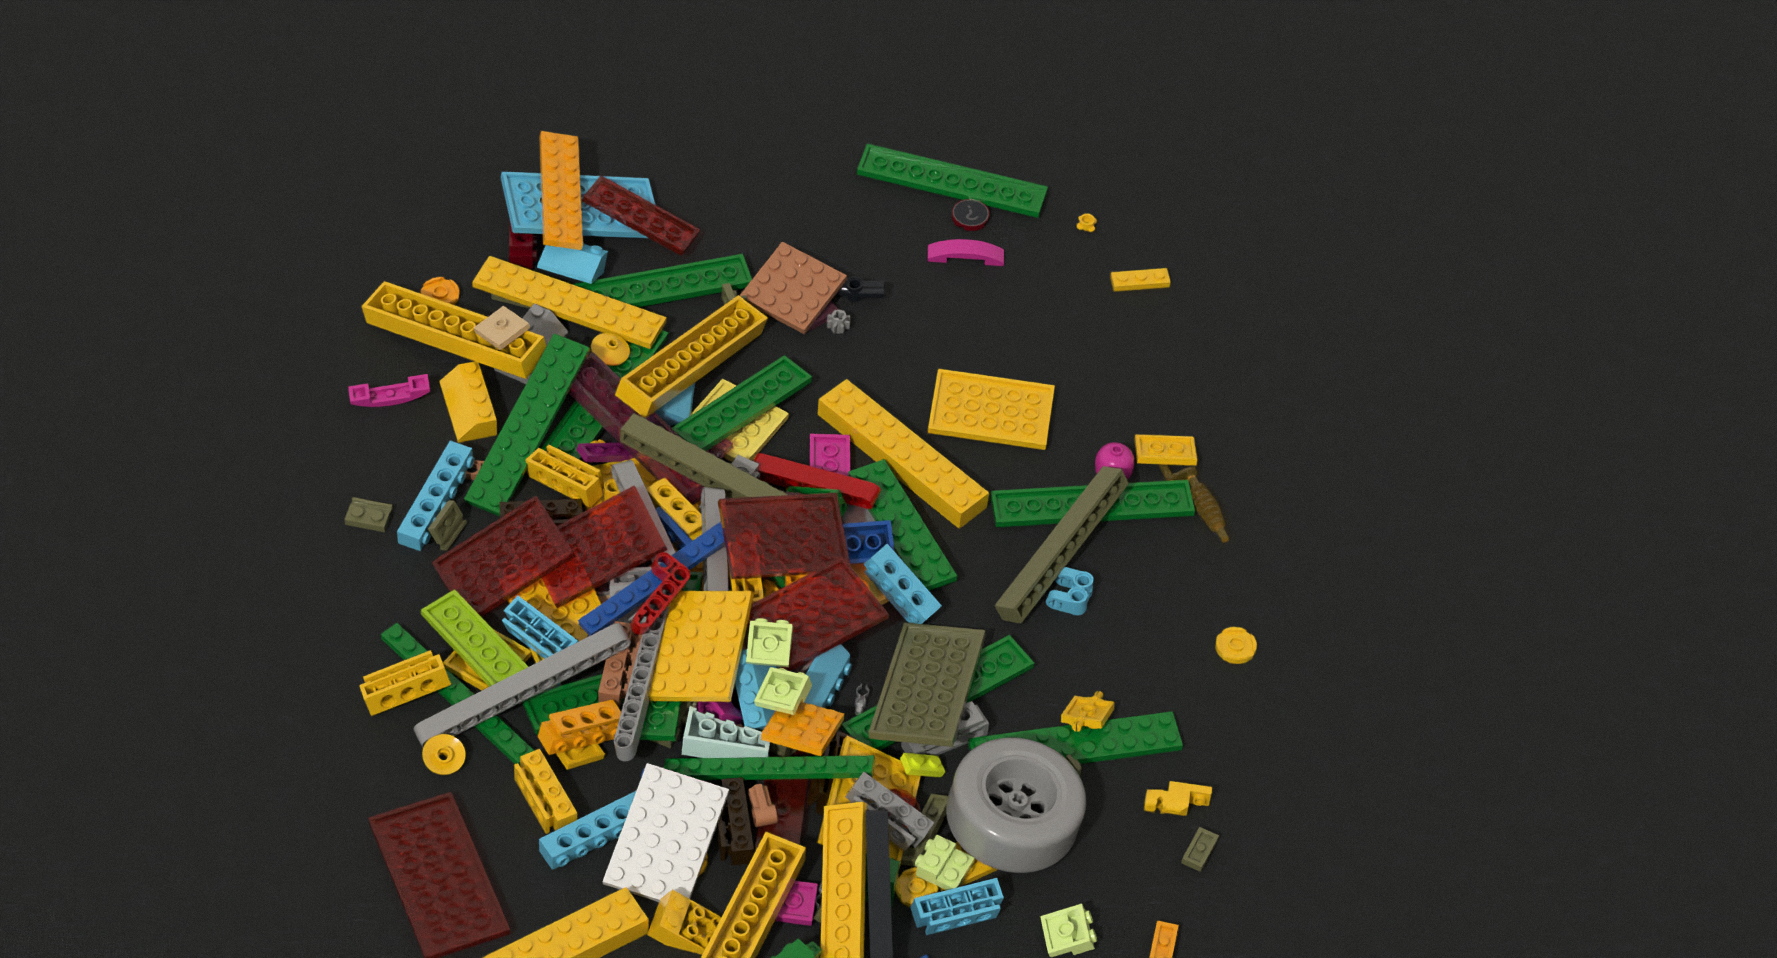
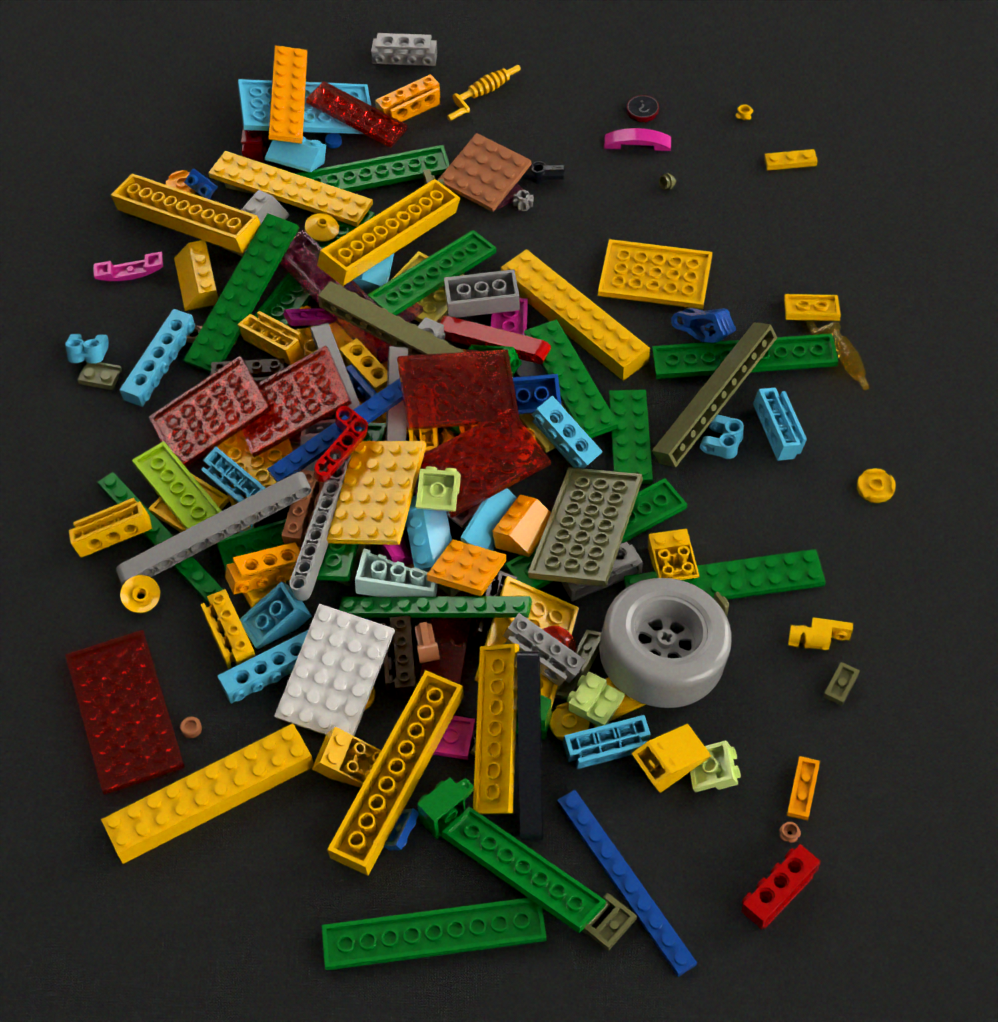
camera: 10 degrees right, 5 degrees up
(357, 487) = (91, 350): none -> medium azure piece
(447, 525) = (165, 383): olive plate -> none
(463, 295) = (200, 184): none -> blue hips
(501, 328) = (222, 209): tan plate -> none
(512, 893) = (191, 727): none -> nougat tile
(595, 777) = (274, 616): none -> medium azure slope
(613, 245) = (333, 140): none -> blue tile
(689, 137) = (404, 49): none -> light grey brick
(702, 189) = (411, 99): none -> light orange brick
(783, 184) = (482, 86): none -> yellow piece
(783, 690) = (449, 534): yellowish green plate -> none
(799, 429) = (482, 293): none -> light grey brick
(857, 685) = (521, 526): none -> light orange slope
(922, 765) = (579, 602): neon yellow plate -> none
(952, 180) = (628, 80): green plate -> none
(971, 592) = (632, 438): none -> green plate
(1001, 303) = (667, 181): none -> olive plate
(1020, 715) = (672, 555): none -> yellow slope
(1024, 920) = (671, 756): none -> yellow slope
(1063, 463) = (717, 320): none -> blue piece
(1087, 712) = (736, 550): yellow plate -> none
(1115, 456) = (766, 313): dark pink cylinder -> none
(1115, 556) = (785, 439): none -> medium azure brick

